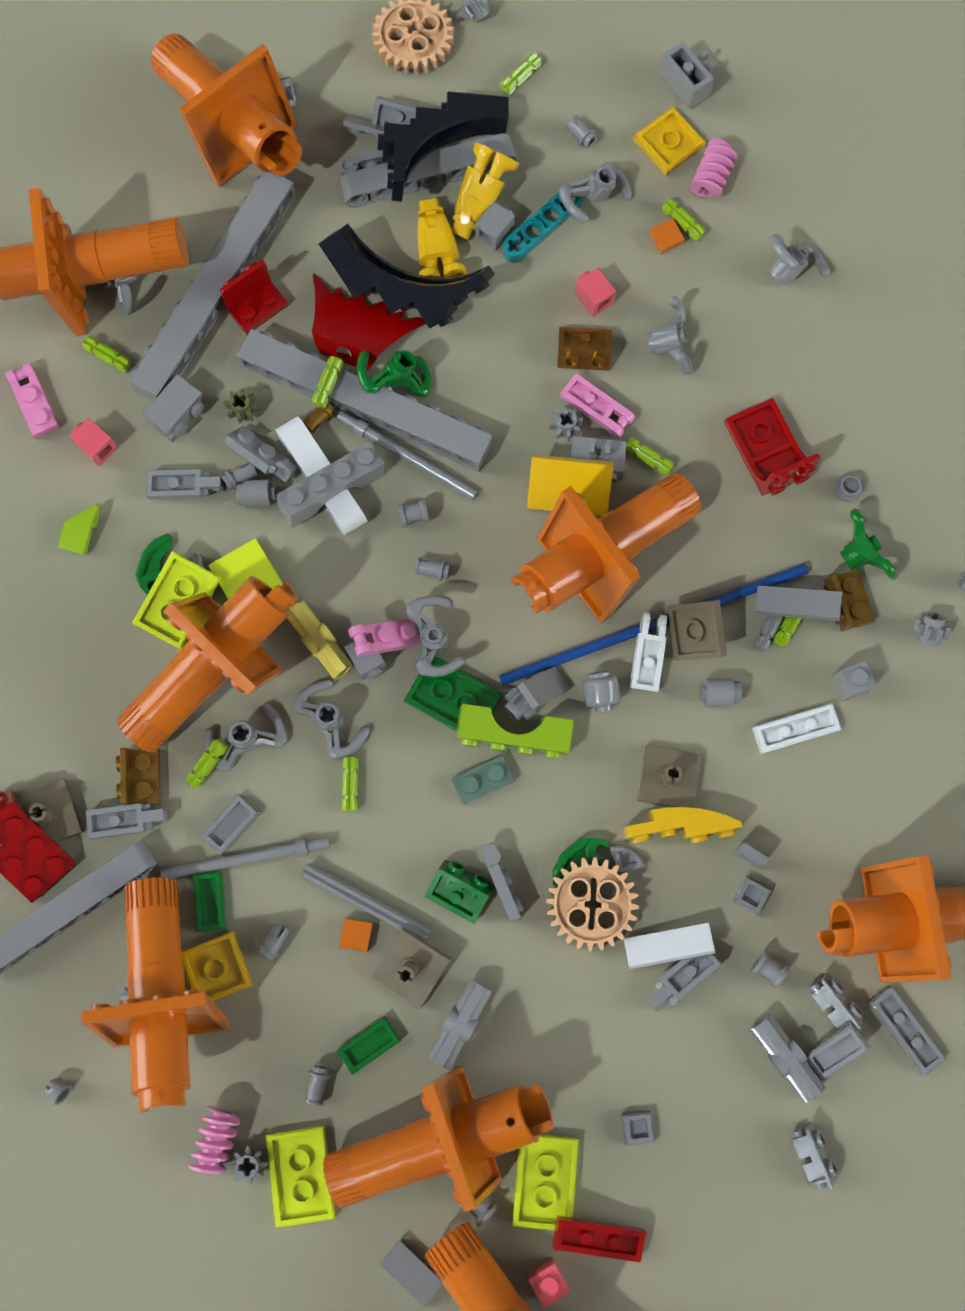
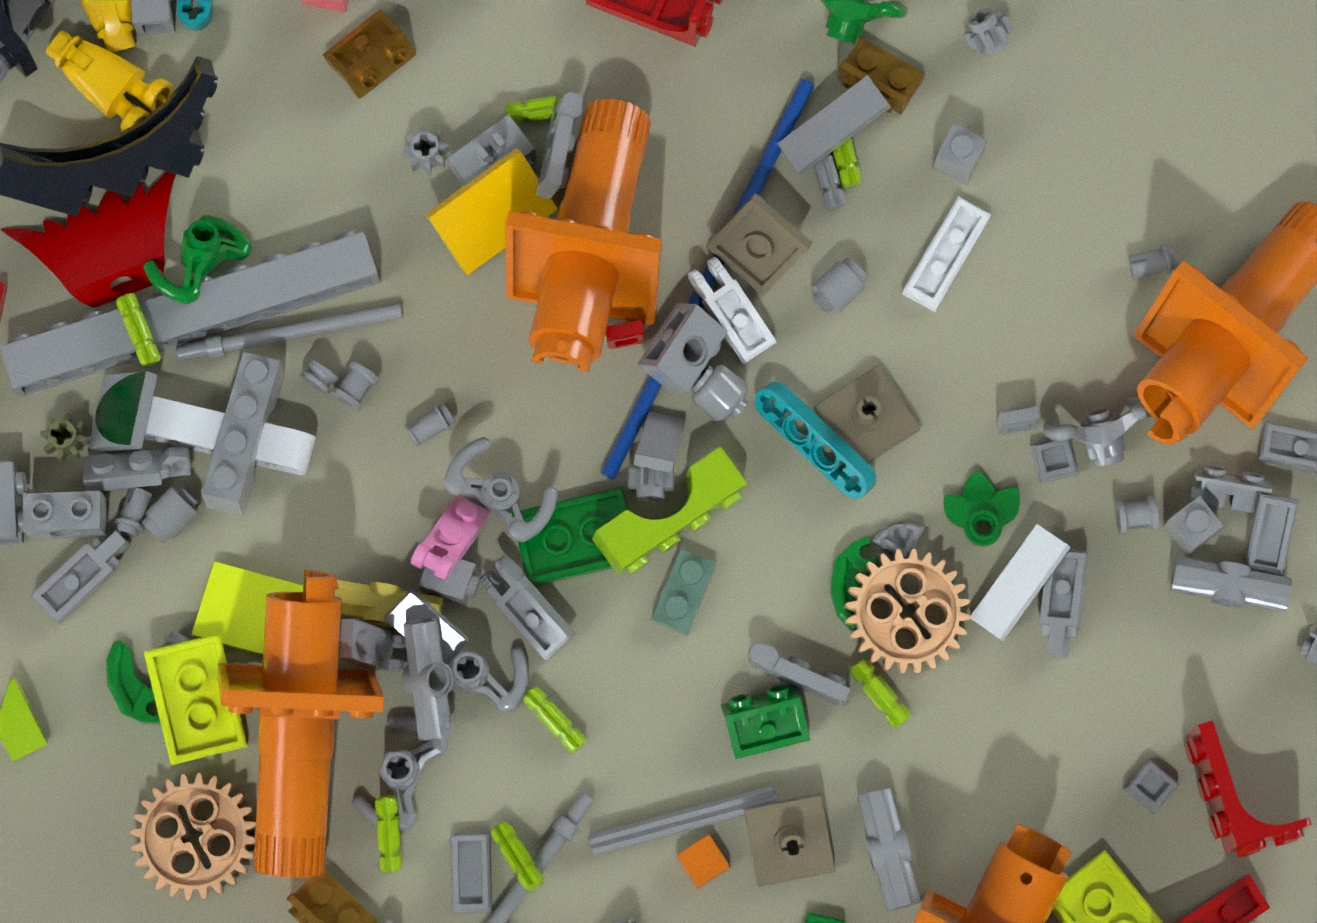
camera: 40 degrees left, 0 degrees up
(84, 665) = (163, 853): none -> light nougat gear
(203, 445) = (65, 515): none -> light grey brick
(260, 839) = (517, 856): none -> lime axle
(281, 418) = (123, 411): none -> tile
(286, 654) = (369, 646): none -> light grey hinge
(293, 713) = (427, 679): none -> light grey piece
(318, 417) = (161, 368): pearl gold pin -> none
(326, 673) = (414, 607): none -> light grey tile
(391, 711) = (527, 608): none -> light grey hinge
(399, 491) = (319, 377): none -> light grey bush
(536, 934) = (880, 693): none -> lime axle
(580, 614) = (625, 334): none -> red tile
(590, 643) = (665, 356): none -> light grey brick
(597, 405) = (440, 103): bright pink plate -> none
(632, 763) = (818, 435): none -> teal beam
(639, 481) = (559, 145): none -> light grey hinge
(663, 1189) = (1230, 820): none -> red bracket
(689, 883) = (982, 504): none -> green plate
(693, 822) = (930, 441): yellow slope -> none
(792, 904) = (1100, 431): none -> light grey piece
(796, 1006) = (1193, 526): none -> light grey brick
(909, 838) = (1153, 262): none -> light grey pin

